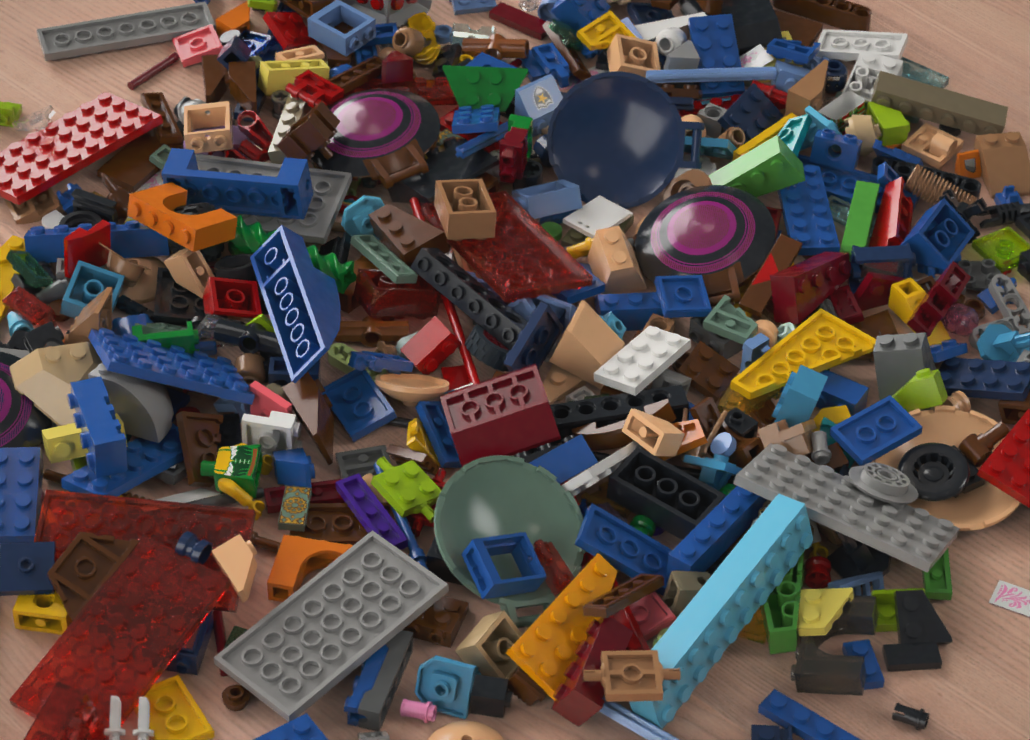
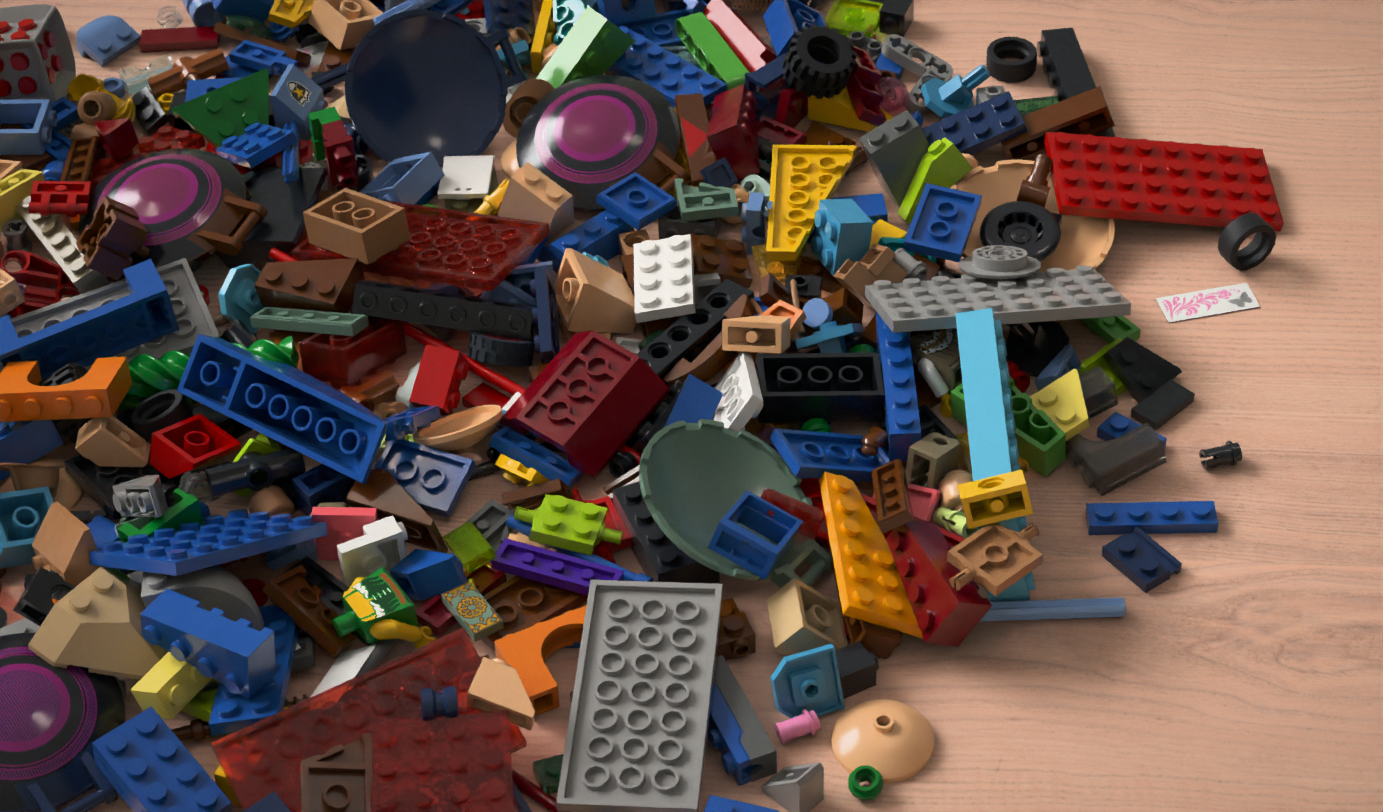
camera: 35 degrees left, 0 degrees up
(171, 315) = (140, 497): none -> light grey slope
(333, 465) = (469, 546): none -> clear neon green tile
(659, 555) = (875, 438): none -> reddish brown arm
(667, 635) = (995, 499): none -> yellow brick
(759, 309) = (719, 174): none -> dark blue tile
(914, 248) = (824, 46): none -> black tyre

